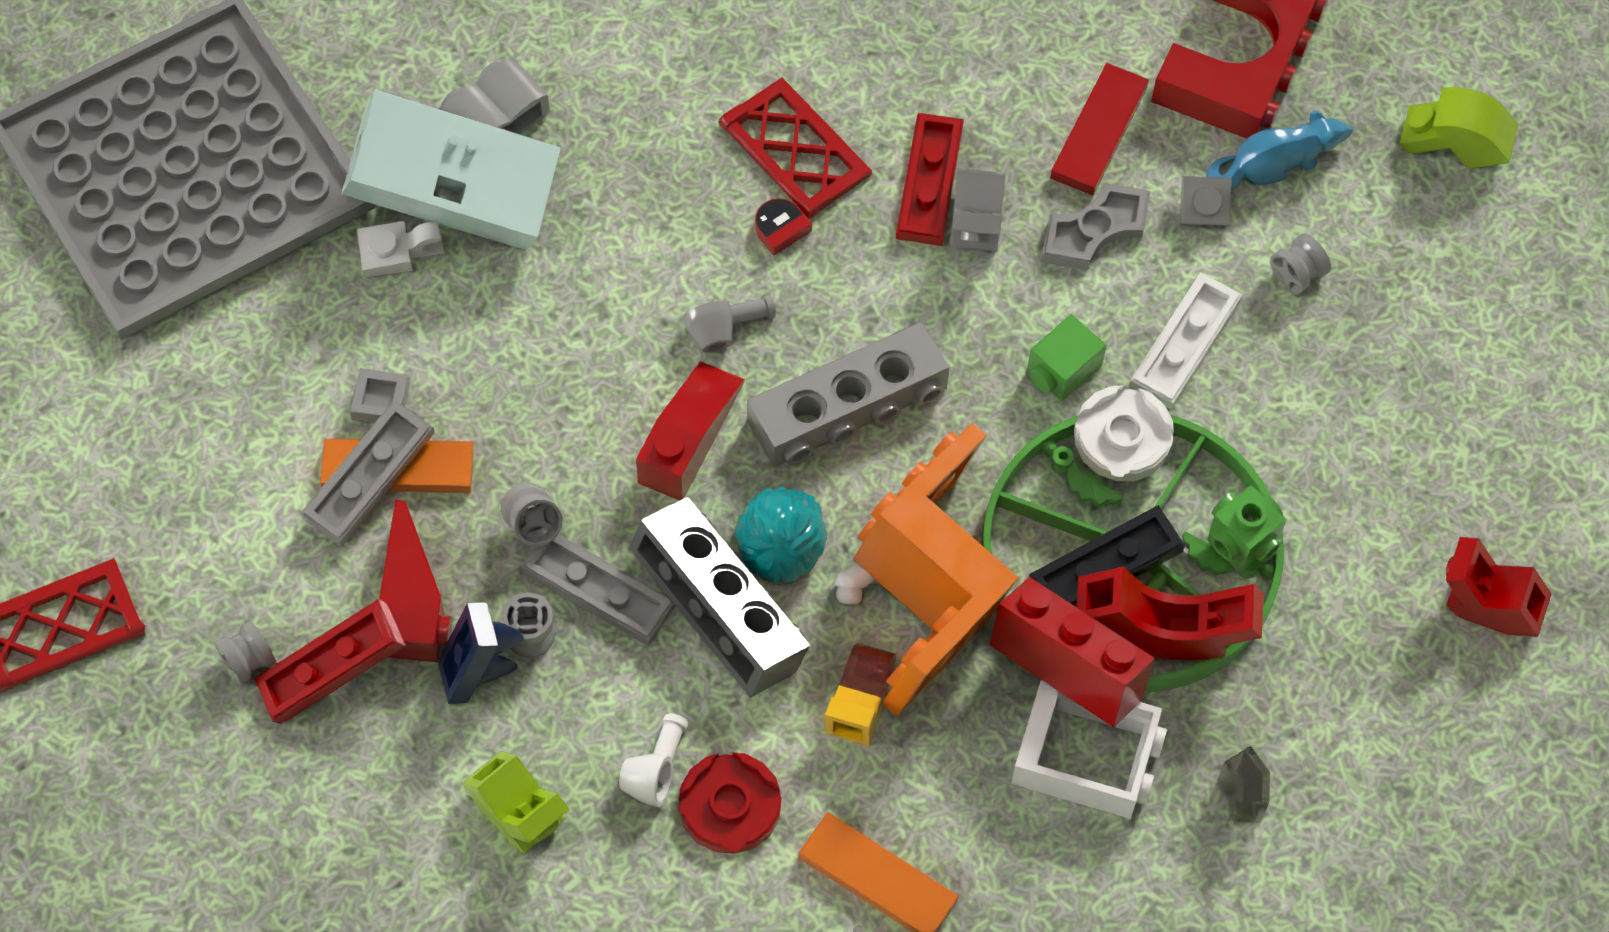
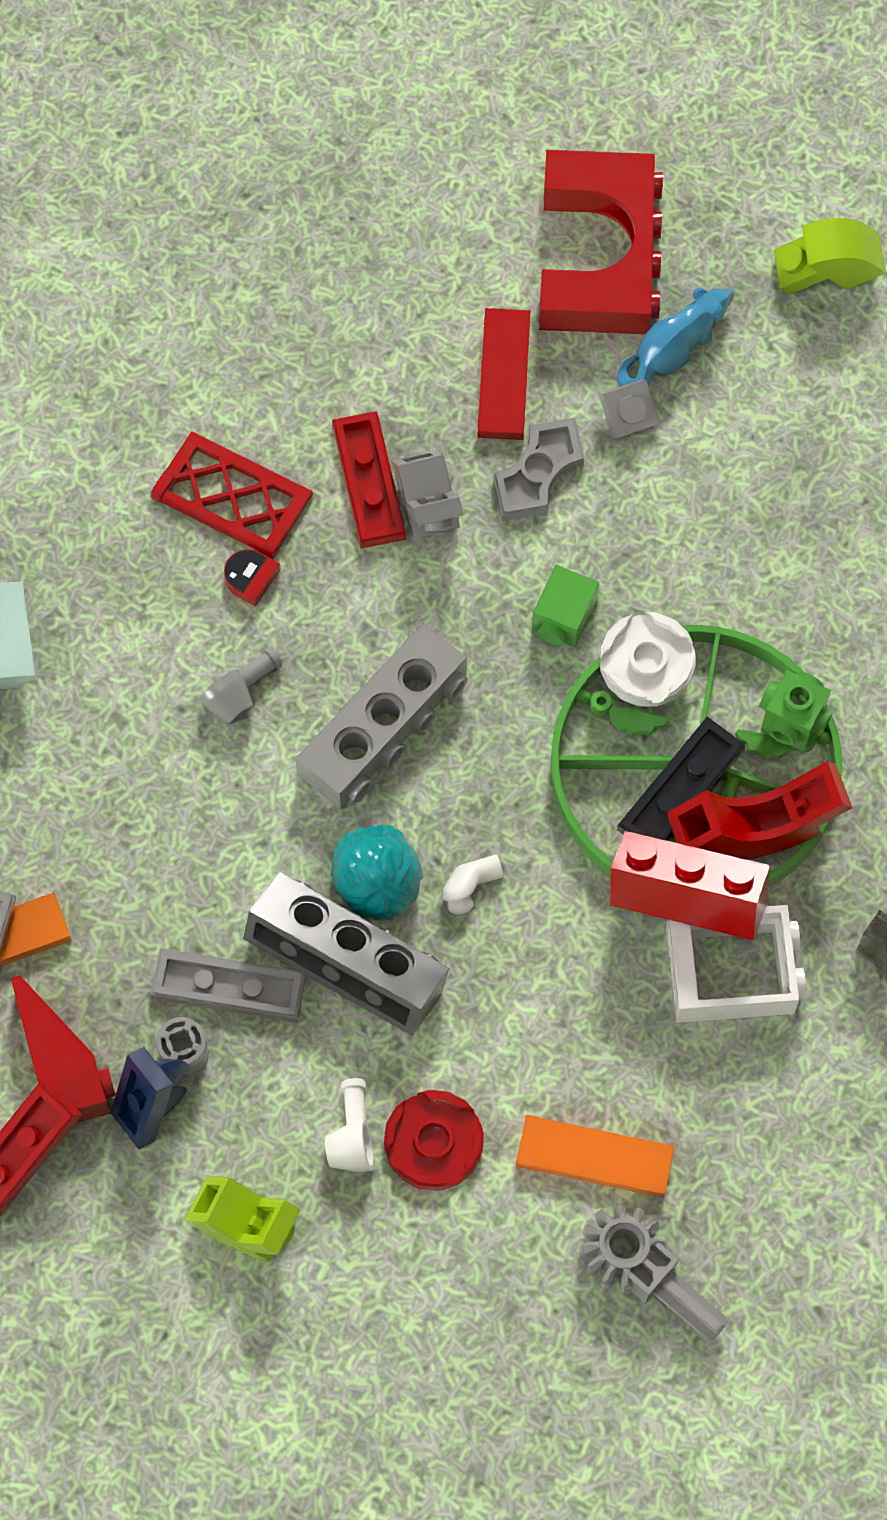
camera: 20 degrees left, 5 degrees up
(531, 525) = (141, 942): light grey wheel -> none
(686, 431) = (249, 804): red slope -> none
(860, 694) = (511, 994): leg -> none
(932, 566) = (532, 854): orange bracket -> none
(1186, 340) = (663, 548): white tile -> none
(1300, 263) = (738, 438): light grey wheel -> none

